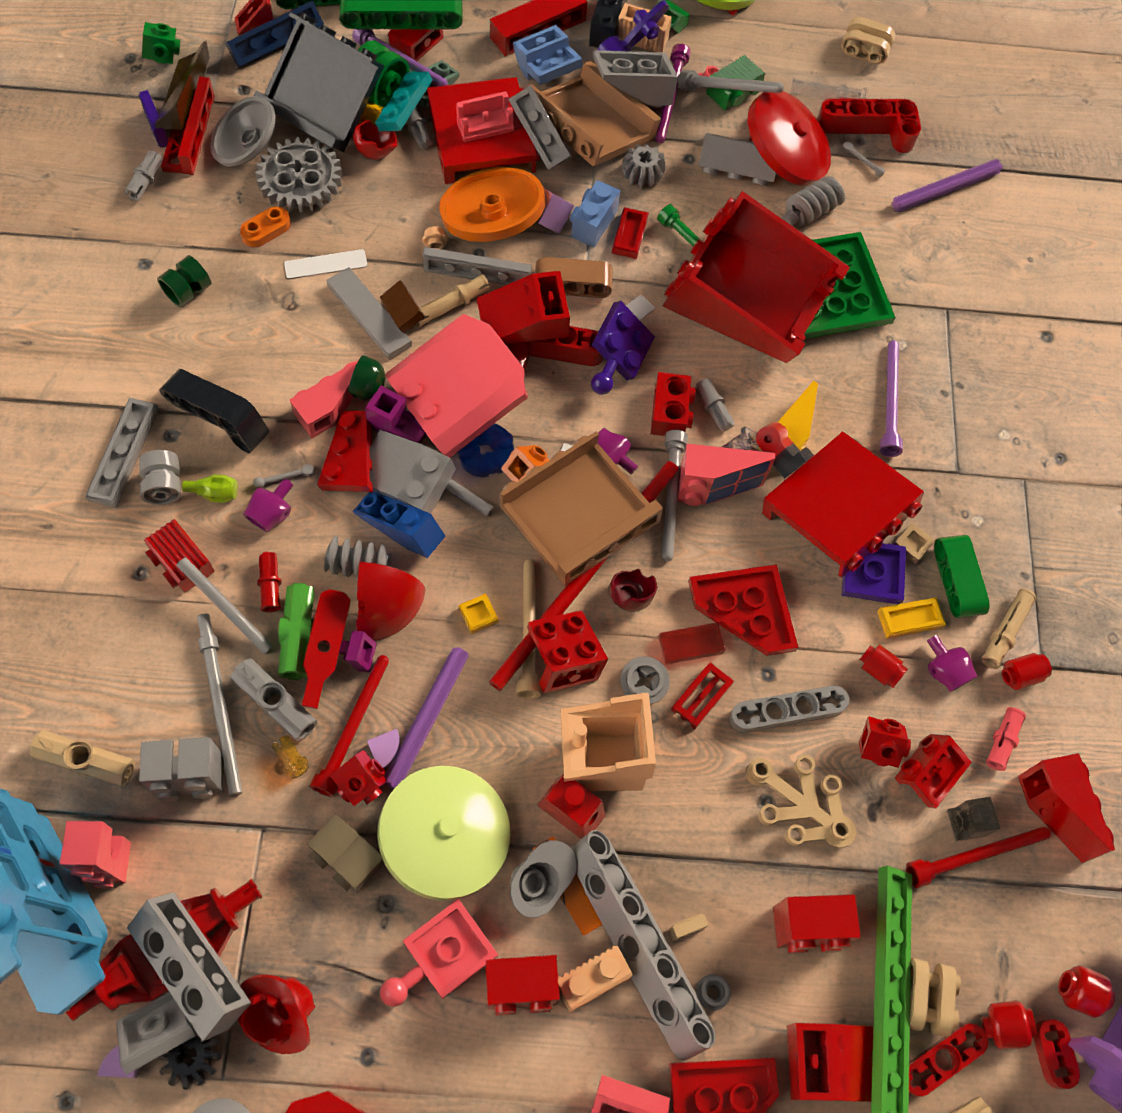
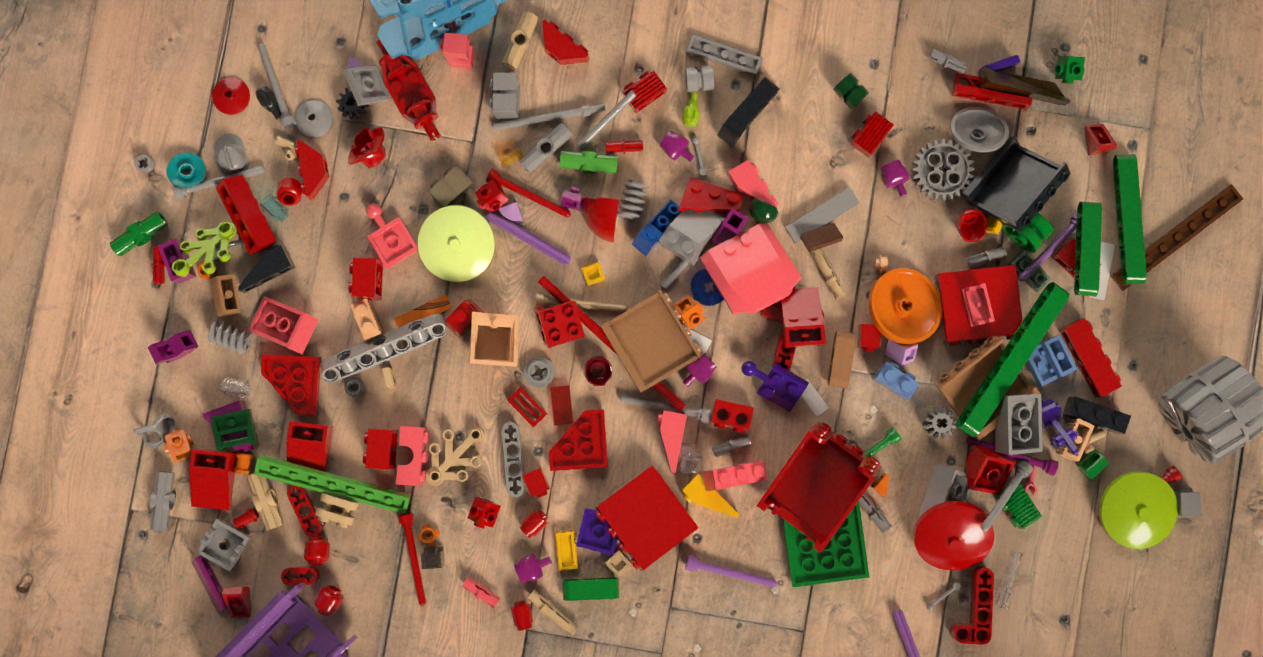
camera: 105 degrees right, 20 degrees up
(94, 691) = (561, 46): none -> red slope
(188, 965) = (394, 101): light grey brick -> none
(248, 256) = (872, 134): none -> red brick
(268, 226) = (898, 146): orange plate -> none
(269, 35) = (1080, 154): dark blue plate -> none
(308, 228) = (894, 175): none -> magenta piece
(325, 263) = (867, 187): white sticker -> none
(327, 629) = (585, 180): red piece -> none
(403, 101) = (1002, 247): teal plate -> none
(472, 266) = (852, 291): light grey tile -> none
(538, 244) = (868, 337): none -> red brick
(539, 127) = (966, 345): light grey plate -> none
(542, 878) = (422, 296): light grey piece -> none
(553, 81) = (1012, 359): none -> green beam
(630, 233) = (882, 406): red tile -> none
(694, 113) = (987, 469): none -> red slope
(755, 377) = (734, 475): none -> coral arch
(788, 457) = (683, 481): leg -> none
(816, 200) = (899, 546): light grey piece -> none
(819, 666) = (536, 483): none -> red brick
(842, 868) = (413, 472): none -> coral arch
(868, 40) = (1057, 611): tan brick -> none
(934, 768) = (466, 541): red bracket -> none
(945, 831) = (422, 537): none -> orange plate
(1065, 802) = (442, 612): red slope -> none

